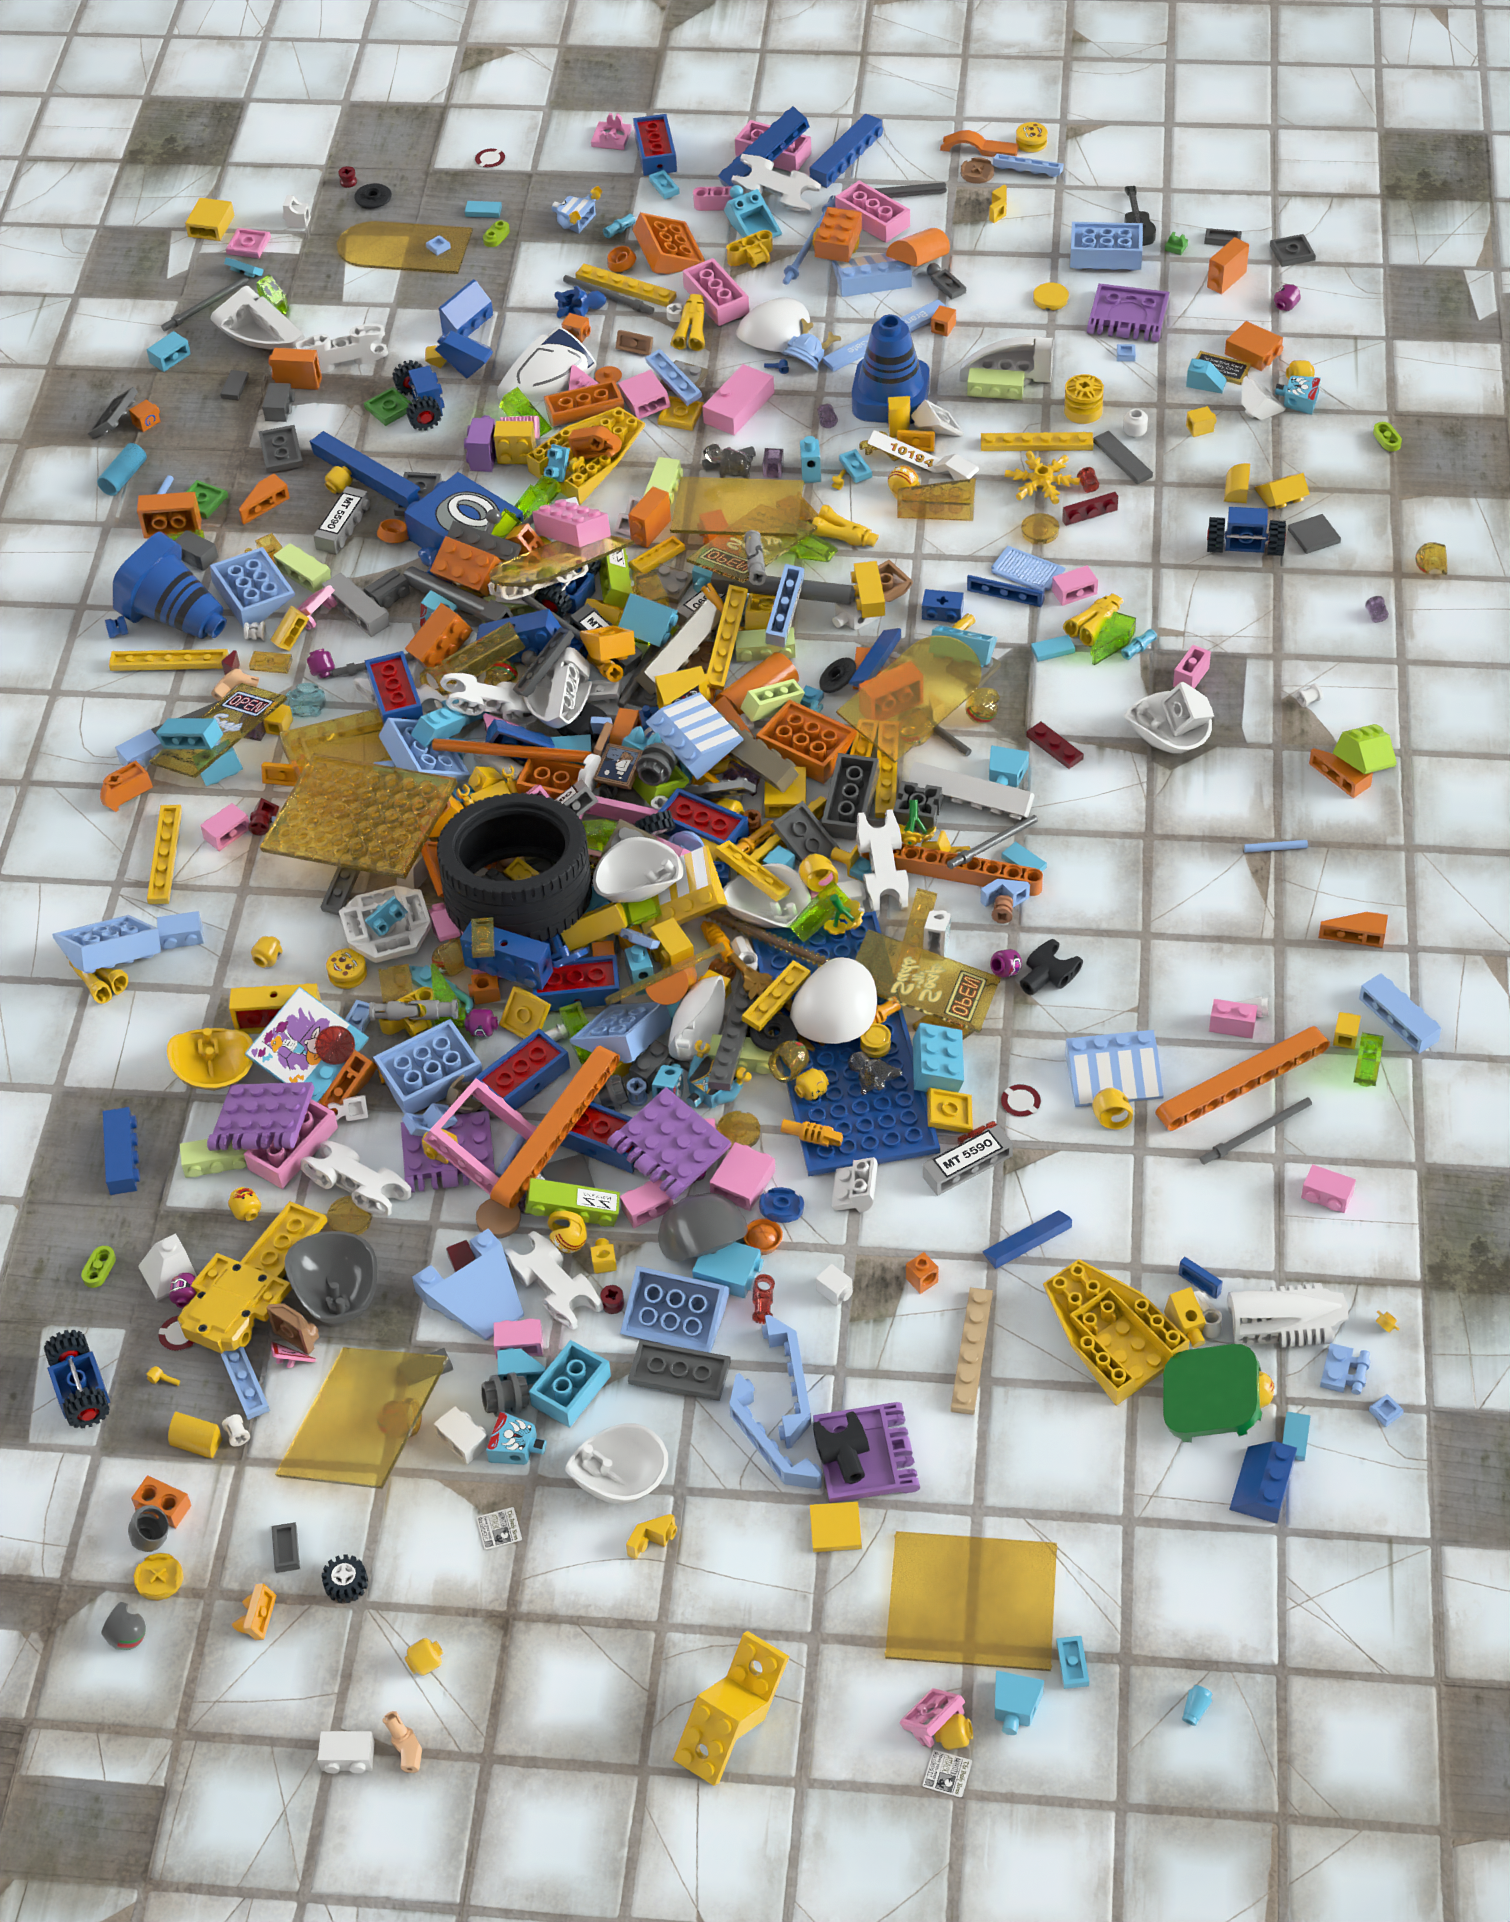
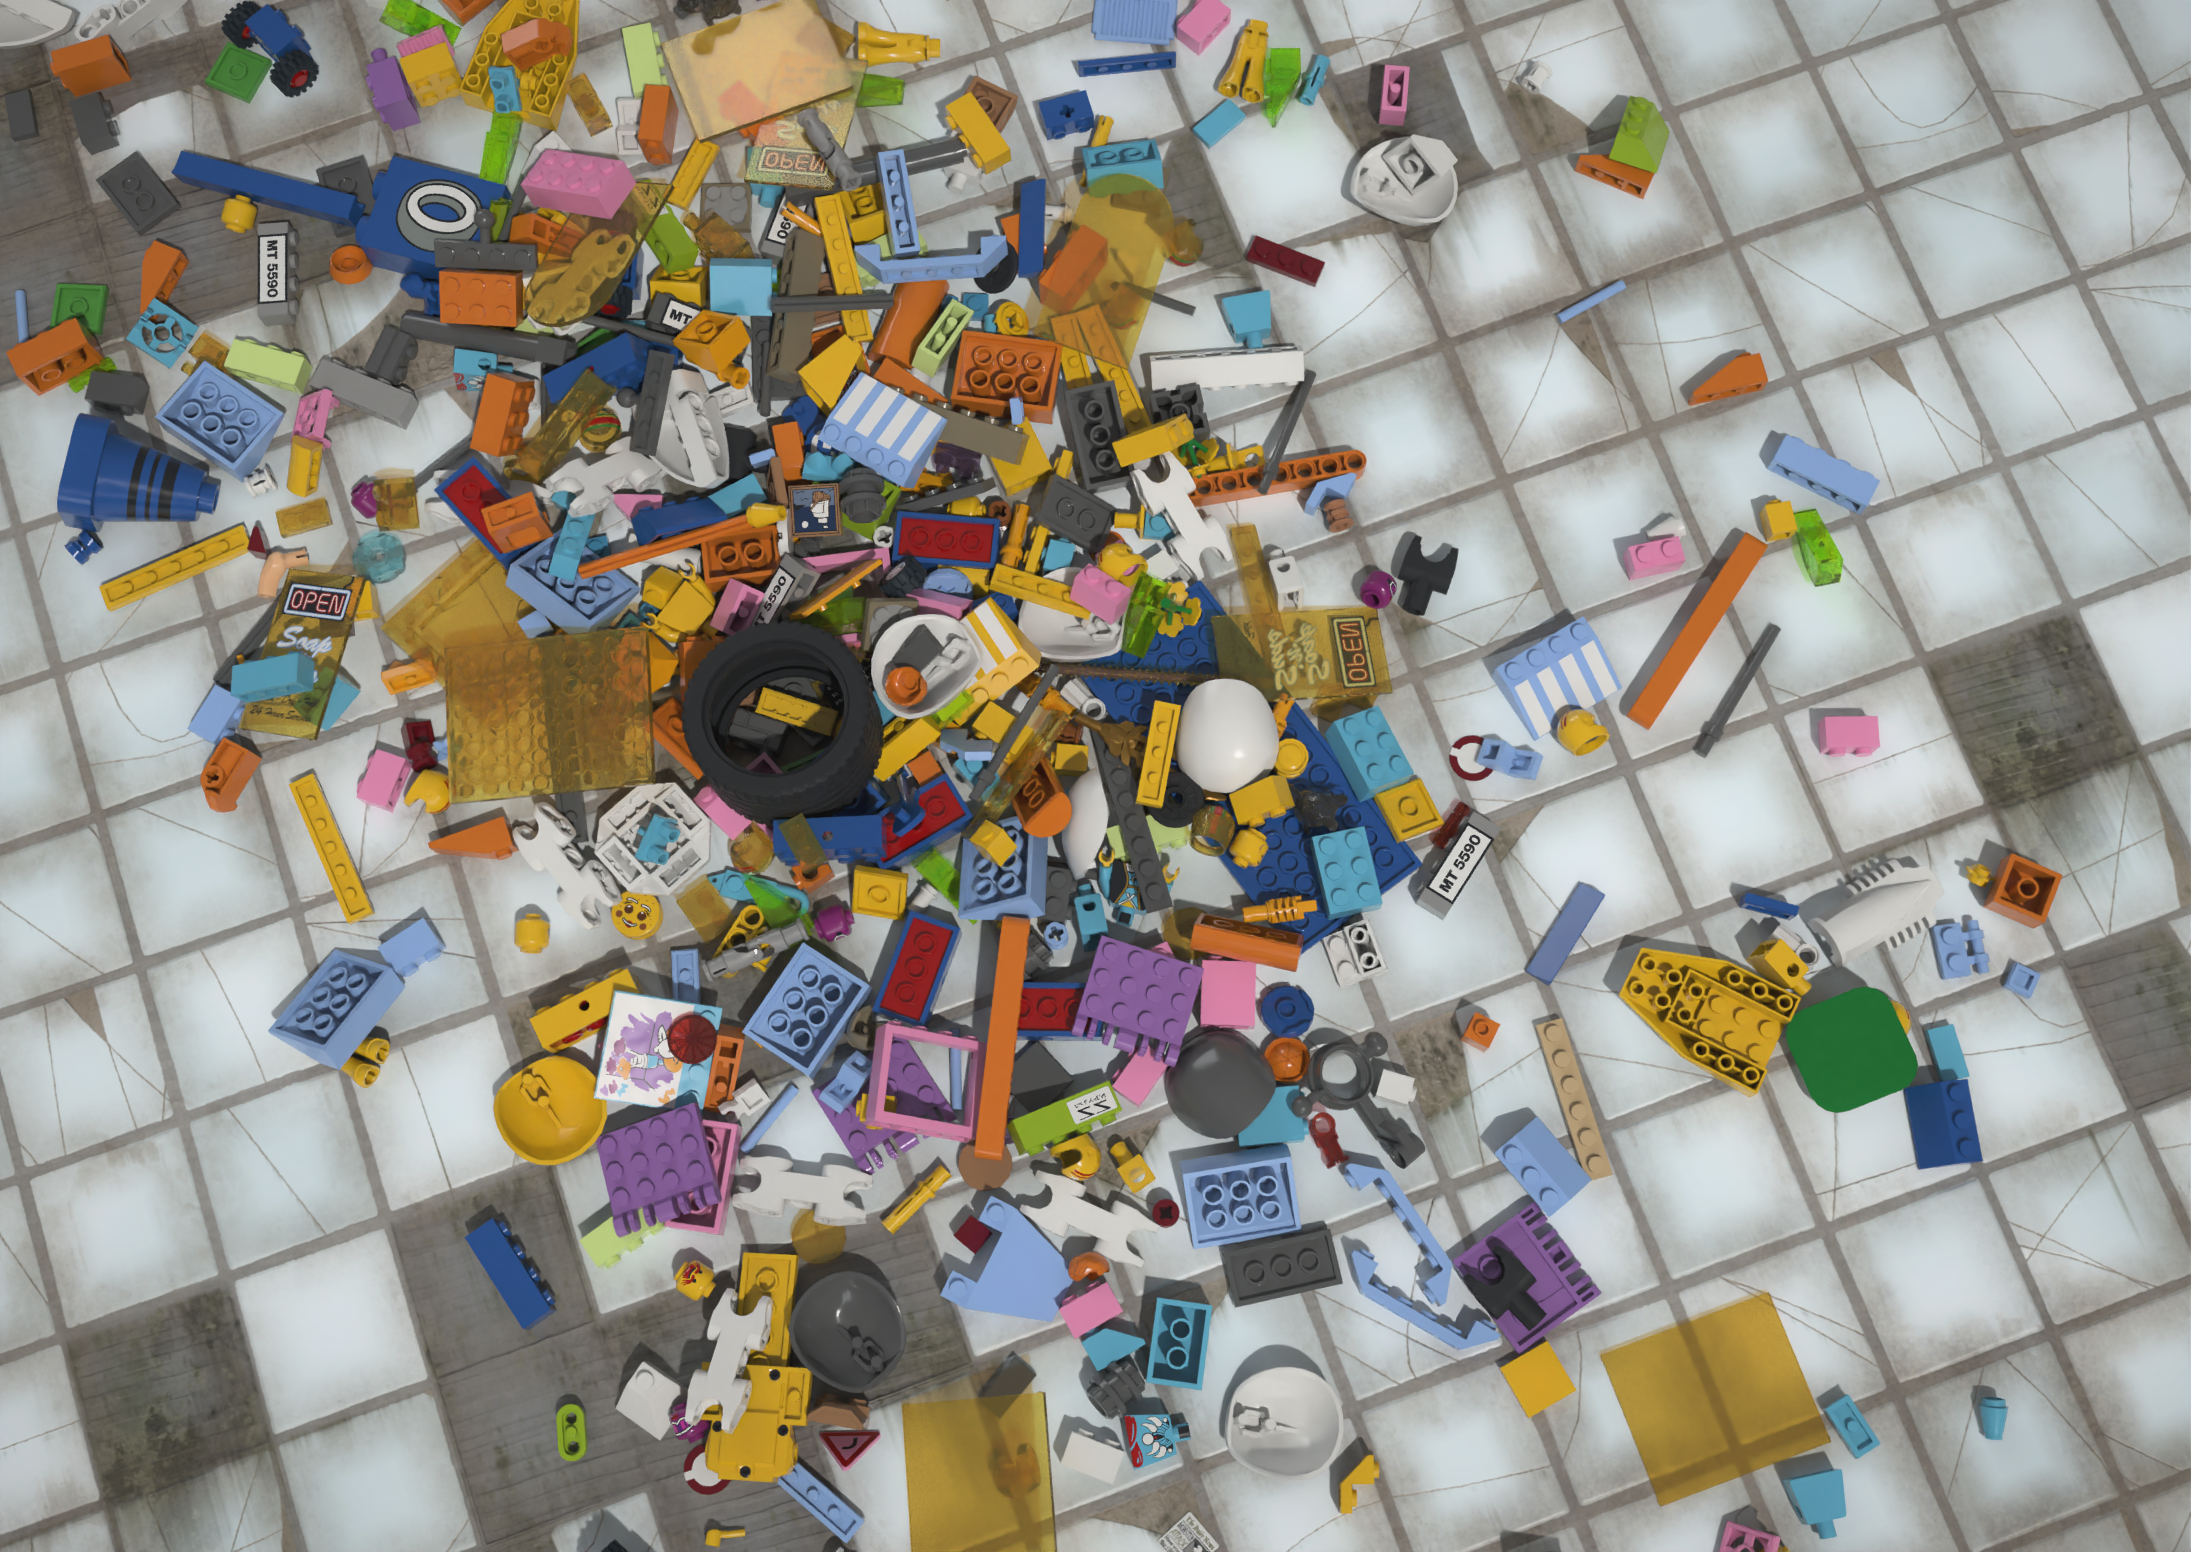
camera: 25 degrees left, 25 degrees up
(226, 1261) = (724, 1380): none -> white piece
(250, 508) = (158, 308): none -> medium azure piece
(252, 837) = (433, 789): none -> yellow helmet
(270, 886) = (485, 840): none -> orange slope
(319, 926) = (579, 879): none -> white piece
(335, 668) = (396, 504): none -> clear yellow brick
(361, 1129) = (769, 1119): none -> light blue bar
(405, 676) = (517, 522): none -> orange window
(435, 1218) = (916, 1199): none -> yellow pin
(532, 1306) = (1088, 1265): none -> orange hair
(578, 748) = (765, 514): none -> yellow cone
(609, 492) = (588, 105): none -> clear yellow brick
(614, 811) = (820, 600): none -> light orange piece
(614, 878) = (906, 686): none -> orange hair
(622, 1003) = (993, 843): none -> yellow brick
(635, 864) = (920, 652): none -> dark grey tile
(642, 959) = (987, 775): none -> dark grey bar
(704, 649) = (831, 303): none -> dark grey axle
(773, 1140) = (1247, 942): none -> orange brick
(792, 882) = (1100, 594): none -> bright pink brick
(798, 754) = (1017, 410): none -> light blue tile
(812, 1310) = (1404, 1146): none -> dark grey piece
(826, 703) = (1018, 316): none -> yellow gear
(835, 658) = (944, 267): none -> light blue slope
(837, 1052) = (1262, 800): none -> yellow brick
(875, 1125) = (1346, 873): none -> medium azure brick
(885, 796) = (1153, 440): none -> yellow brick
(919, 1379) = (1543, 1166): none -> light blue slope
(1021, 856) = (1326, 436): medium azure tile -> none
(1044, 1107) = (1507, 760): none -> light blue slope
(1415, 1342) = (2022, 891): none -> orange brick

